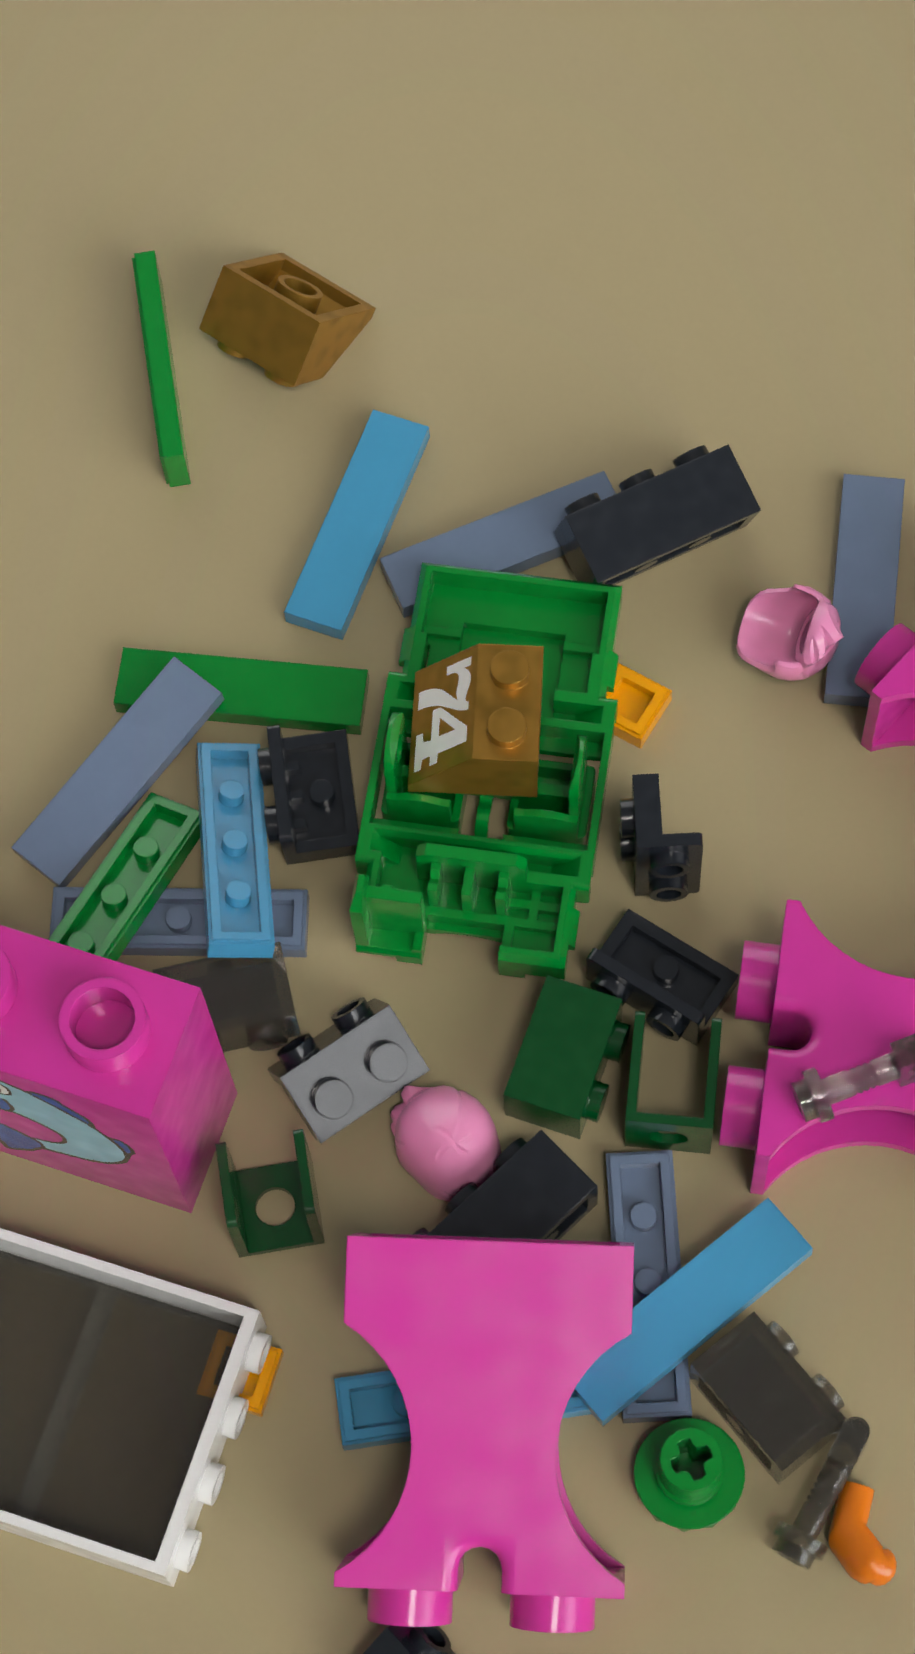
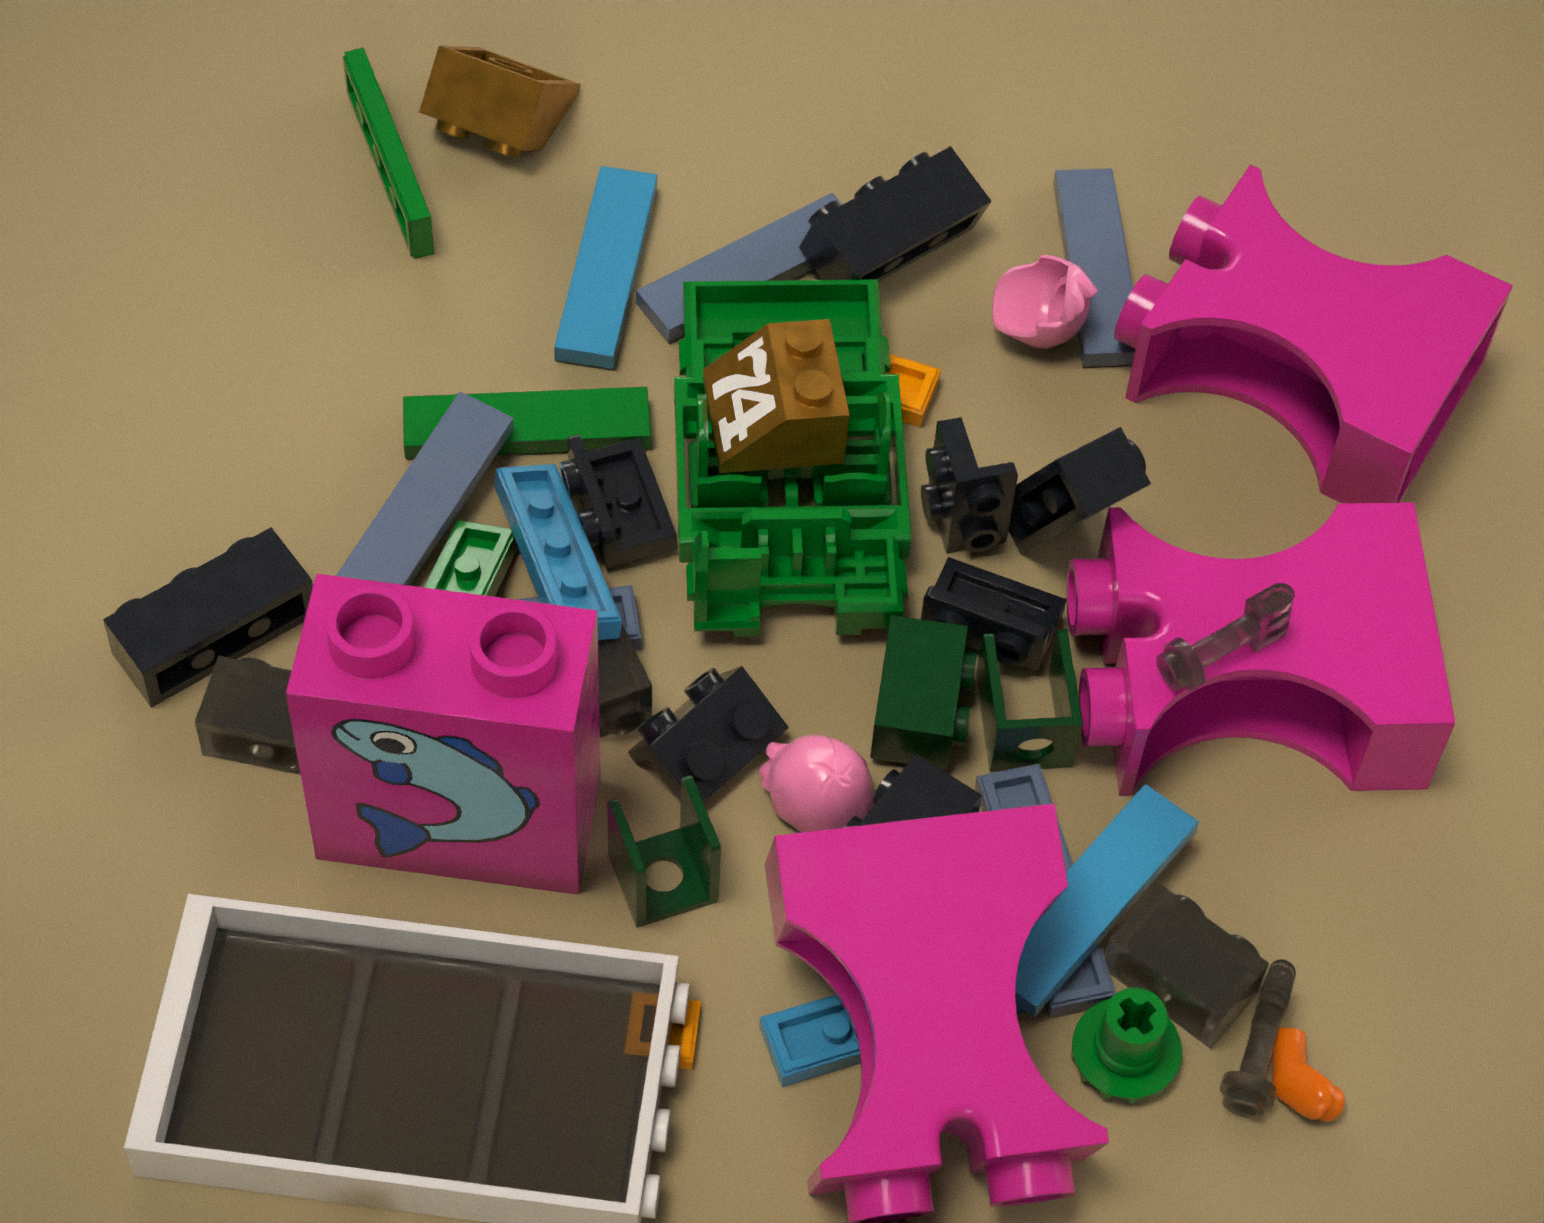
camera: 20 degrees left, 10 degrees down
(762, 868) = (1076, 488): none -> black brick

